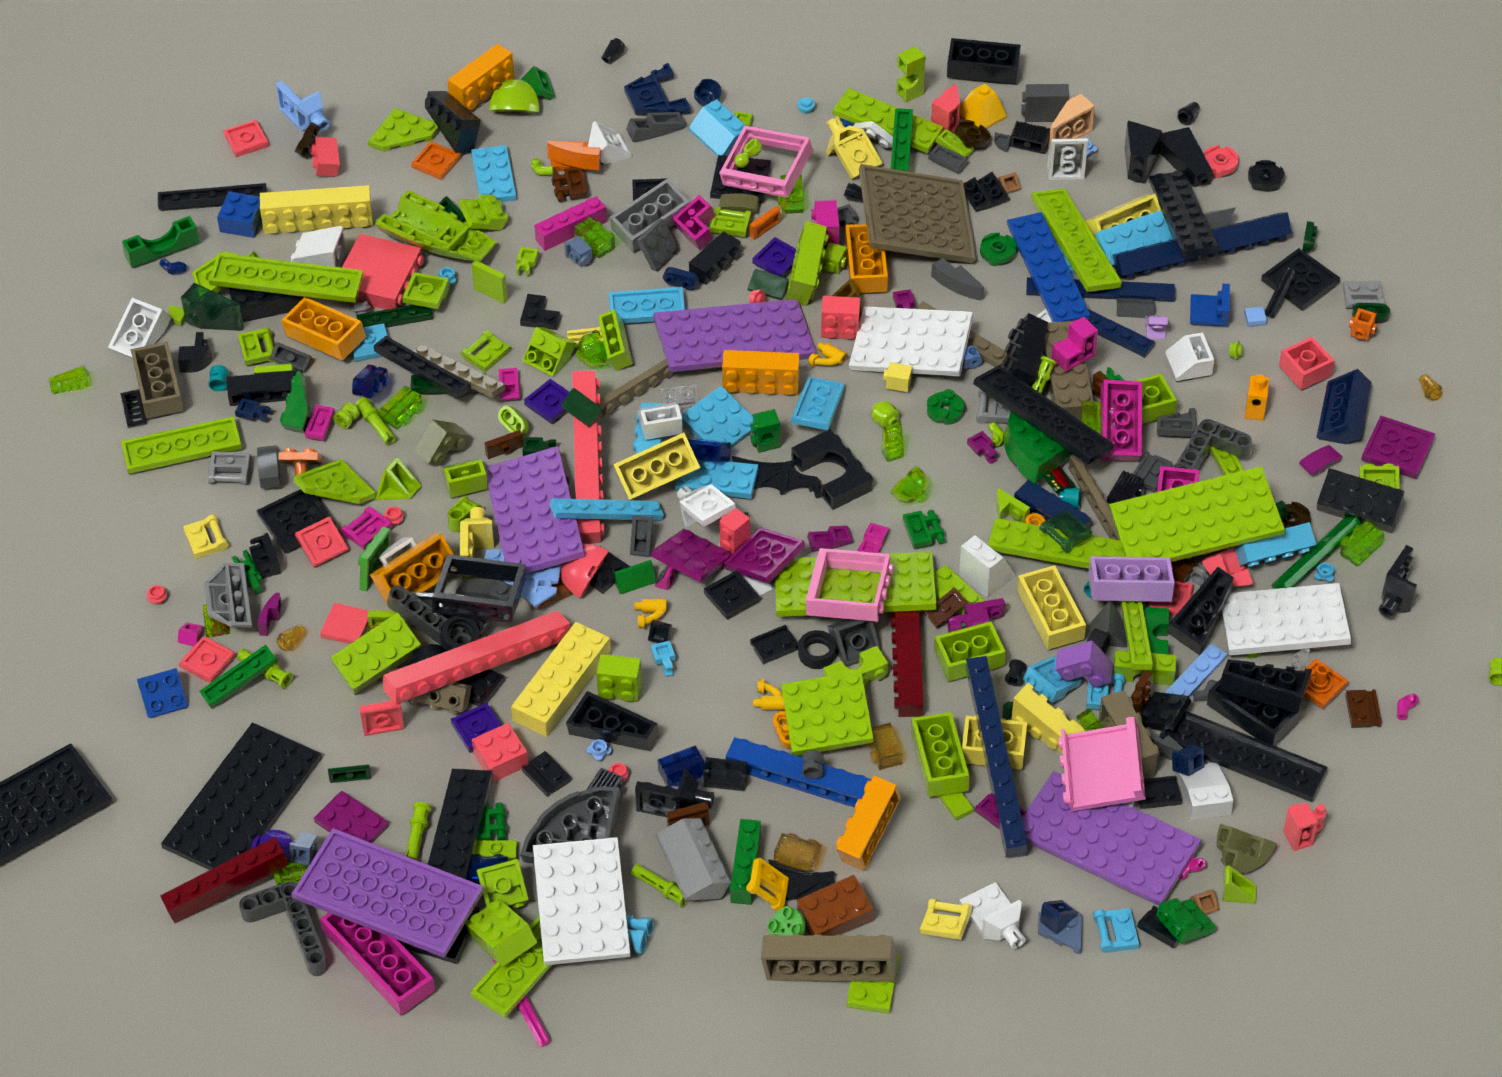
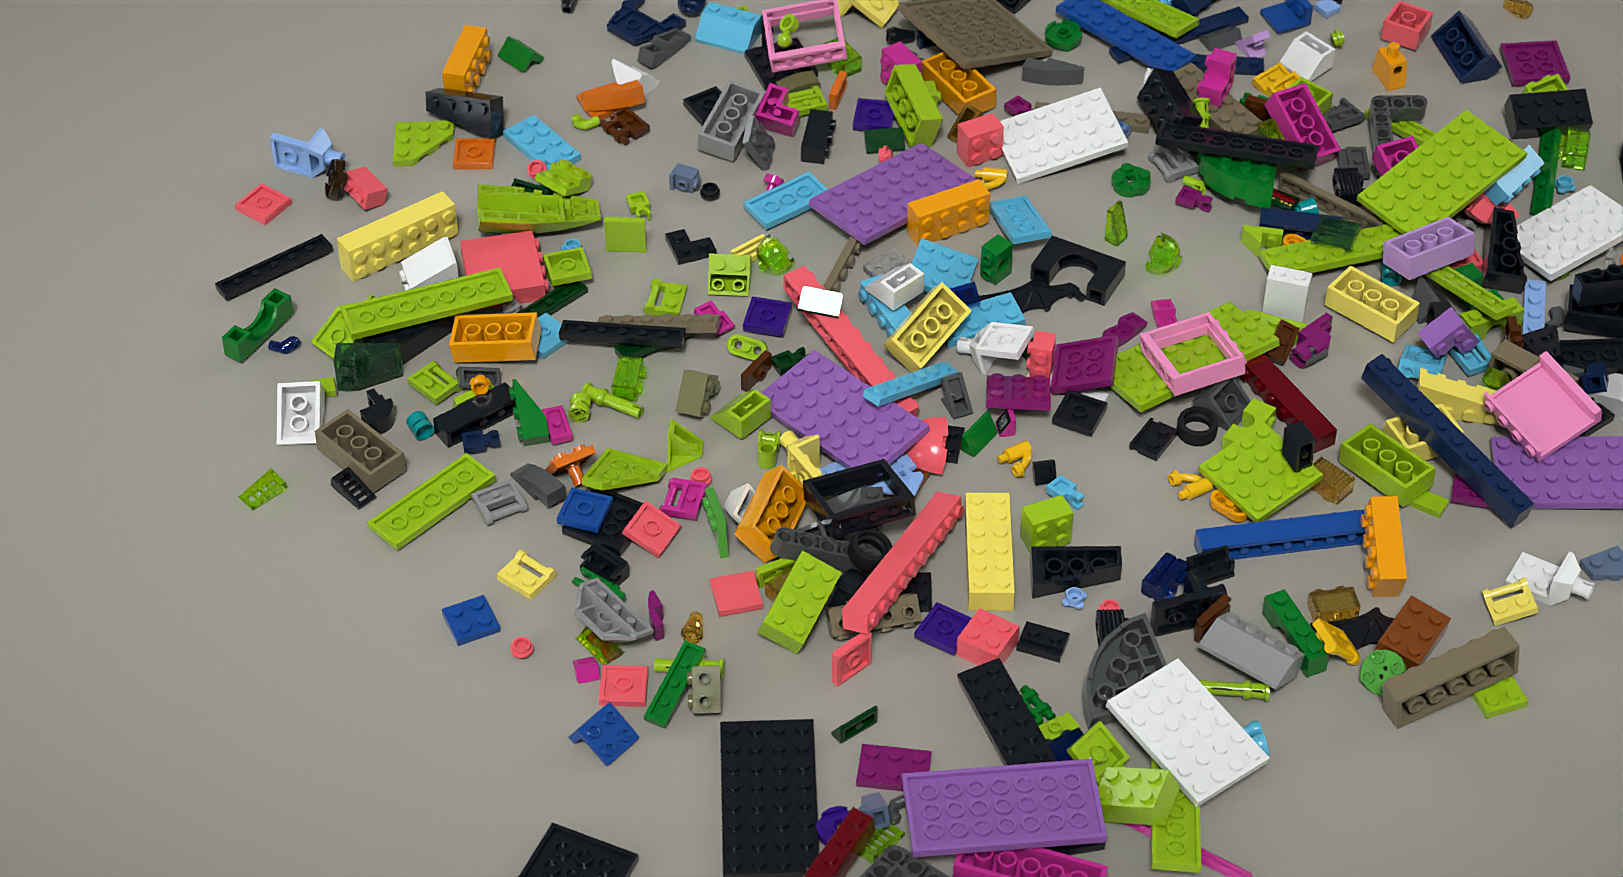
camera: 30 degrees left, 5 degrees down
(138, 555) = (470, 620): none -> blue plate
(240, 215) = (320, 270): blue brick -> none
(254, 691) = (705, 689): none -> olive brick
(278, 364) = (480, 384): none -> light orange plate
(282, 503) = (584, 510): none -> blue tile
(370, 381) = (582, 366): clear blue brick -> none
(418, 825) = (963, 740): lime pin -> none
(471, 193) = (535, 167): none -> coral plate
(514, 96) = (511, 69): lime brick -> none
(561, 226) = (656, 157): dark pink brick -> none
(592, 271) = (710, 191): none -> black plate
(596, 237) = (690, 157): clear neon green brick -> none
(615, 339) = (798, 245): lime brick -> none
(647, 283) = (772, 181): none -> dark pink tile
(681, 278) = (800, 165): dark blue plate -> none
(812, 764) = (1289, 517): dark grey wheel -> none
(858, 704) = (1298, 446): none -> black brick
(884, 413) = (1085, 206): lime head -> none
(898, 377) = (1072, 170): light yellow brick -> none
(918, 530) = (1201, 287): green plate -> none
(971, 642) = (1334, 369): lime brick -> none
(1056, 915) = (1605, 554): dark blue slope -> none
(1149, 365) = (1274, 79): none -> yellow slope
(1318, 460) = (1482, 98): magenta slope -> none

